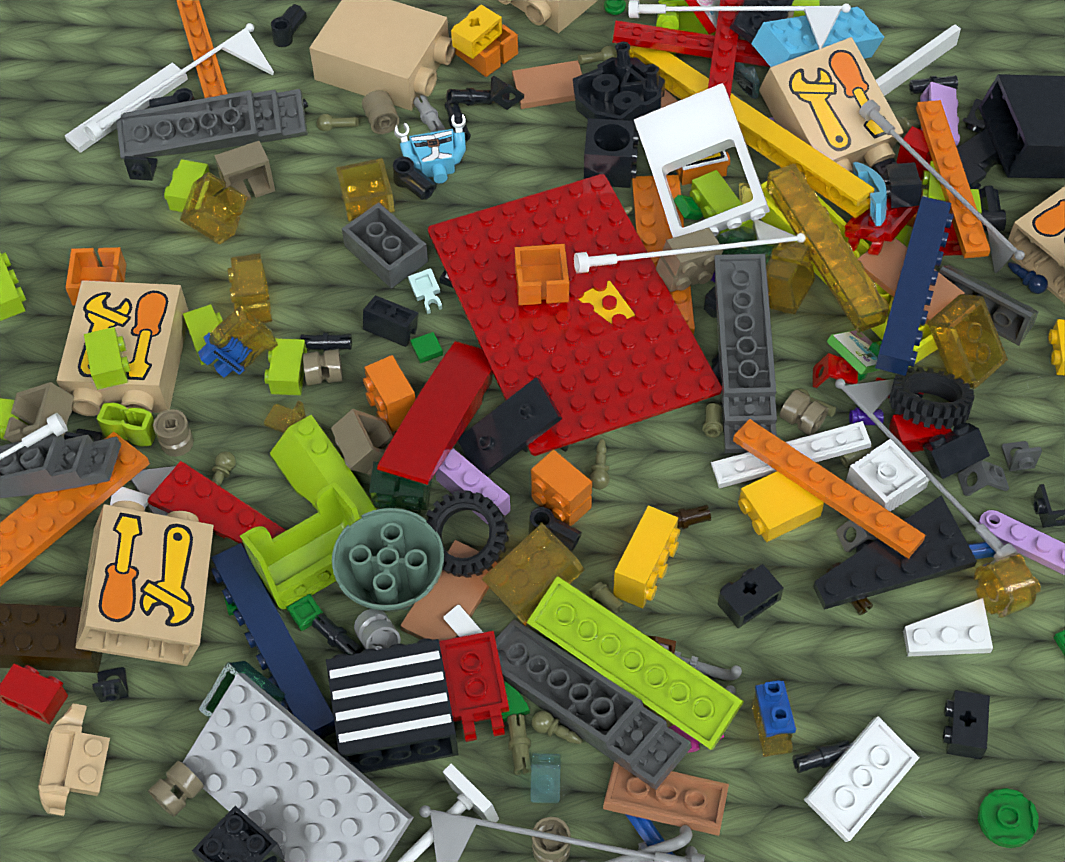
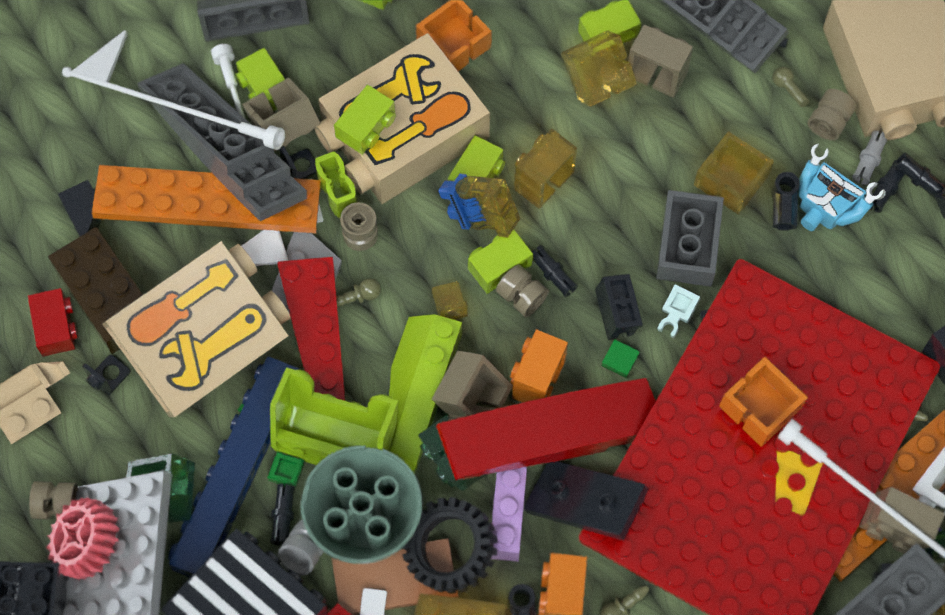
camera: 50 degrees right, 10 degrees up
(228, 759) = (83, 538): none -> coral gear

